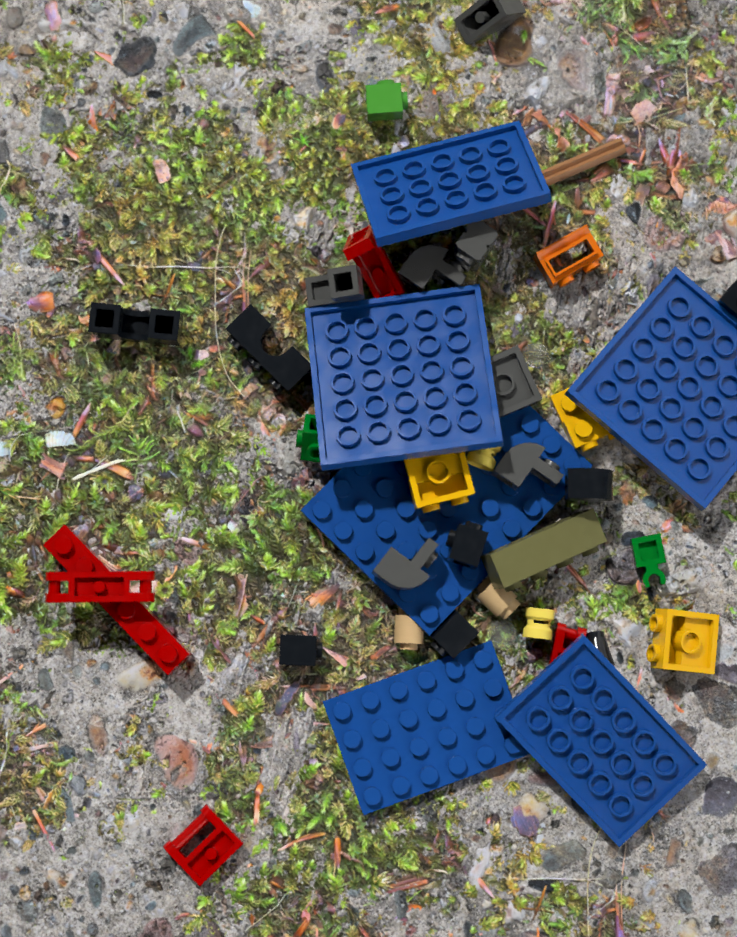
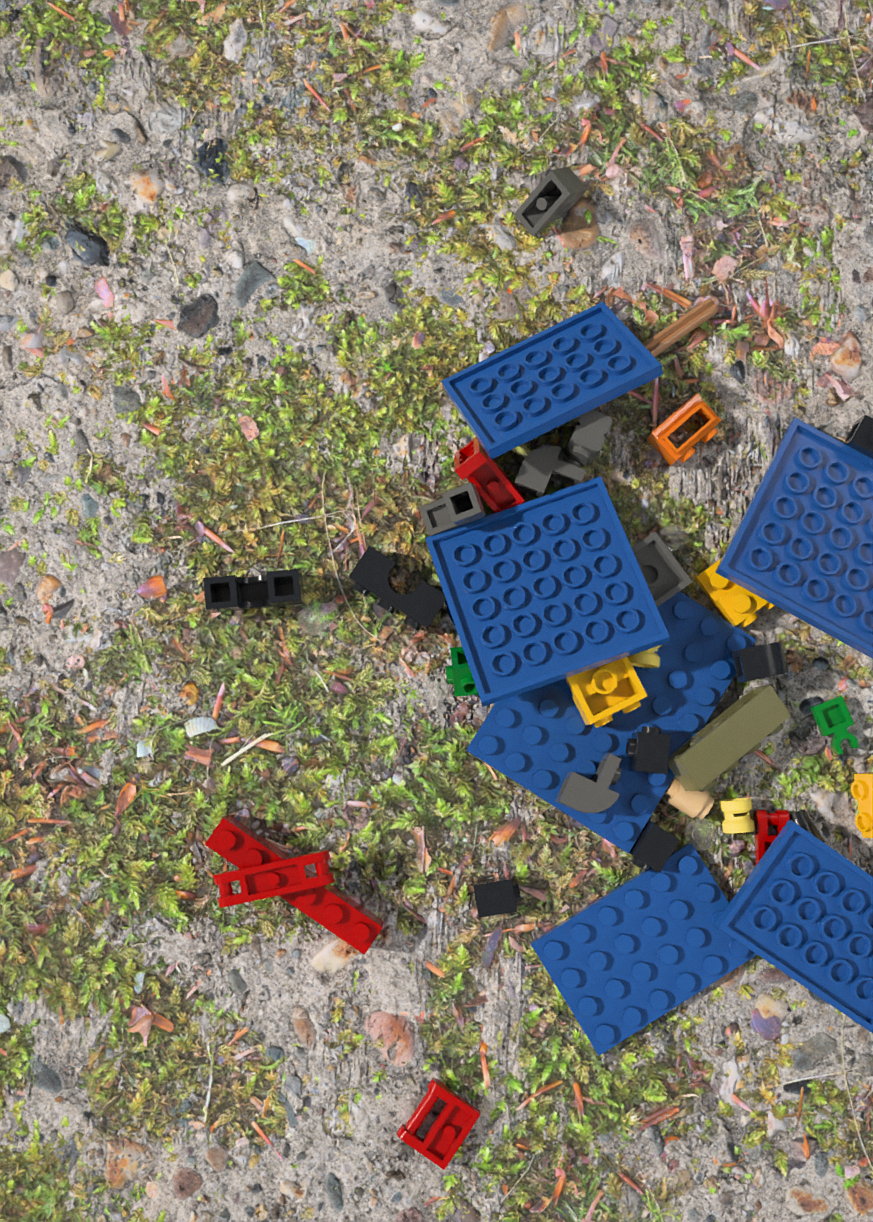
camera: 10 degrees left, 0 degrees up
(185, 363) = (313, 620): none -> clear plate
(385, 101) = (462, 309): bright green brick -> none
(407, 632) = (603, 853): tan brick -> none
(525, 459) = (685, 651): dark grey brick -> none

